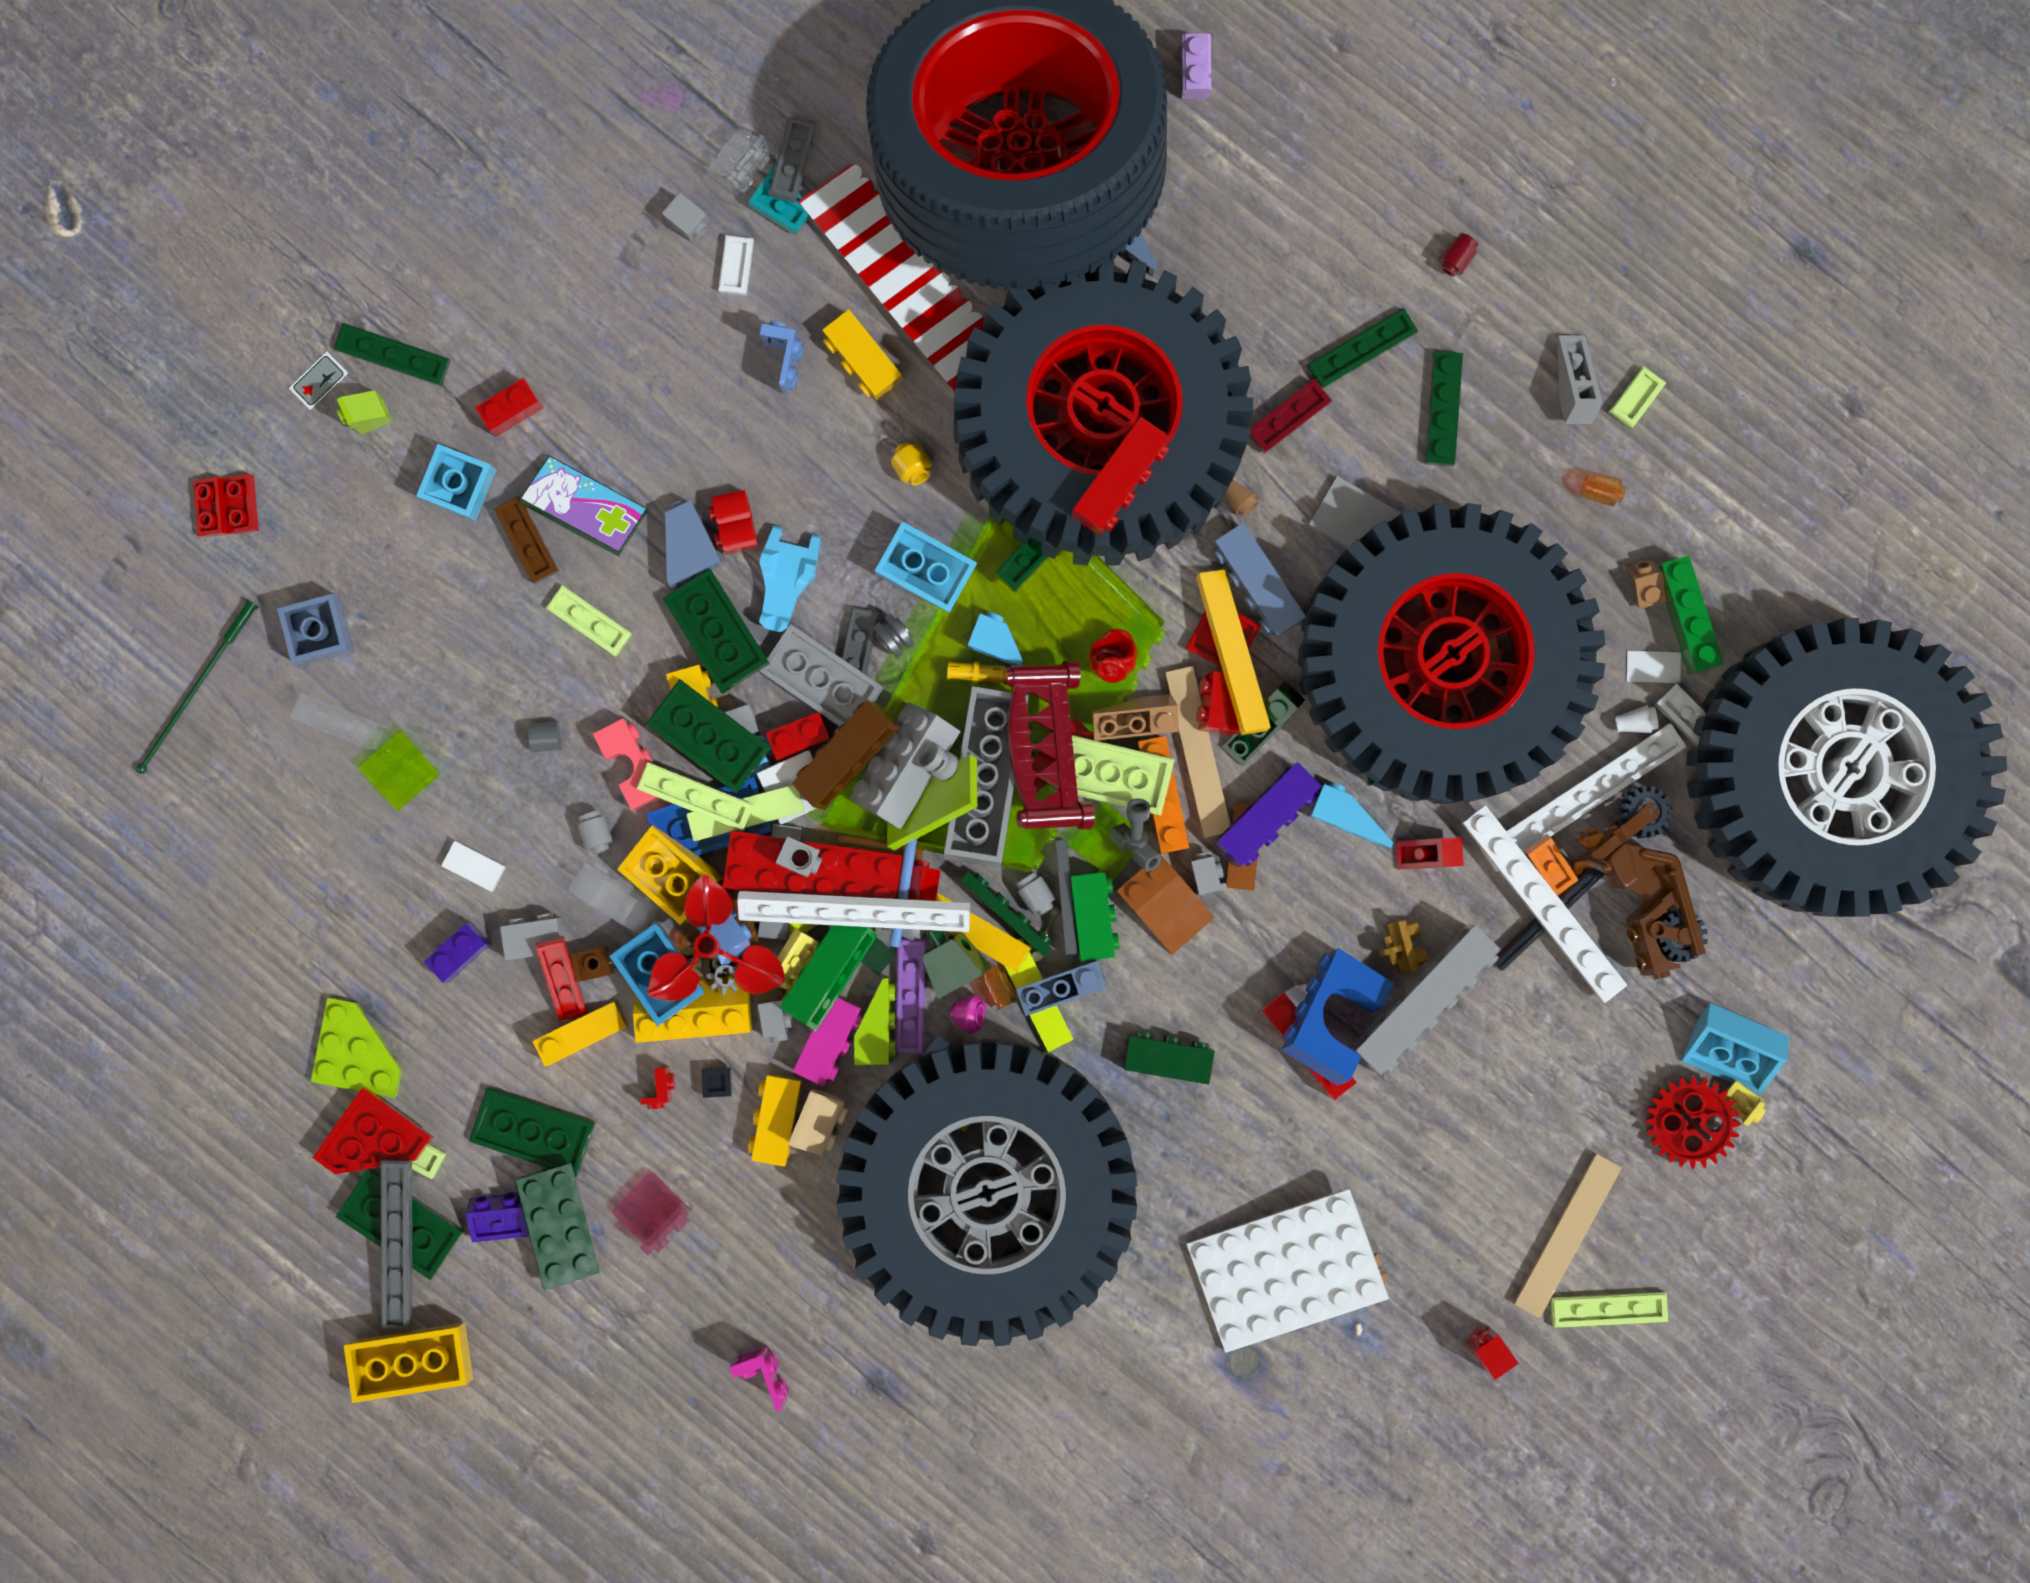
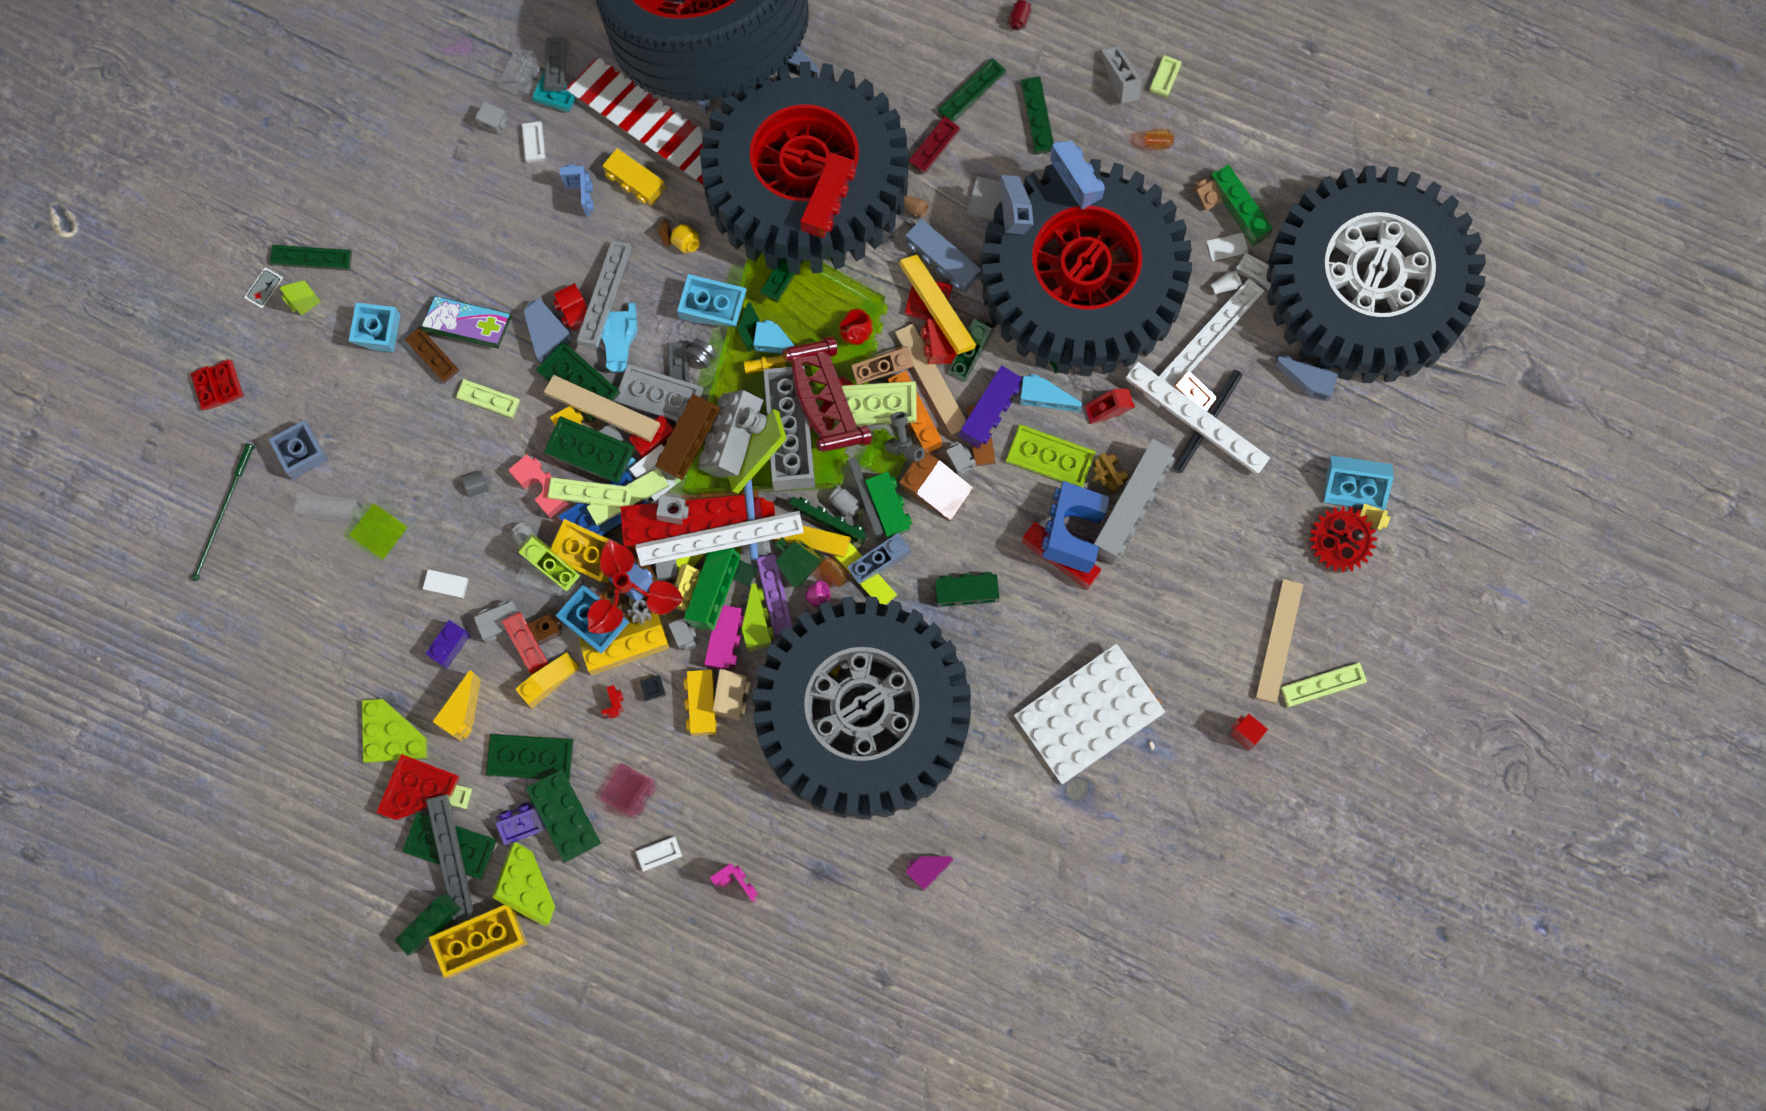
camera: 15 degrees left, 10 degrees down
(347, 1325) = (427, 924): none -> dark green brick
(452, 1052) = (460, 709): none -> yellow slope
(484, 1306) = (523, 886): none -> lime plate
(509, 407) = (400, 270): red brick -> none
(615, 879) = (548, 561): none -> lime slope
(672, 1305) = (659, 854): none -> white tile
(739, 683) = (602, 408): none -> tan tile
(781, 518) = (604, 294): none -> light grey plate
(885, 445) = (664, 232): none -> reddish brown tile
(969, 606) = (747, 323): none -> dark green slope
(1018, 1420) = (927, 869): none -> magenta slope
(1330, 901) = (1050, 456): none -> lime tile
(1378, 553) = (1016, 205): none -> sand blue slope
(1475, 530) = (1076, 173): none -> medium blue slope
(1651, 875) = (1267, 378): reddish brown piece -> none
(1714, 890) = (1310, 379): none -> sand blue slope

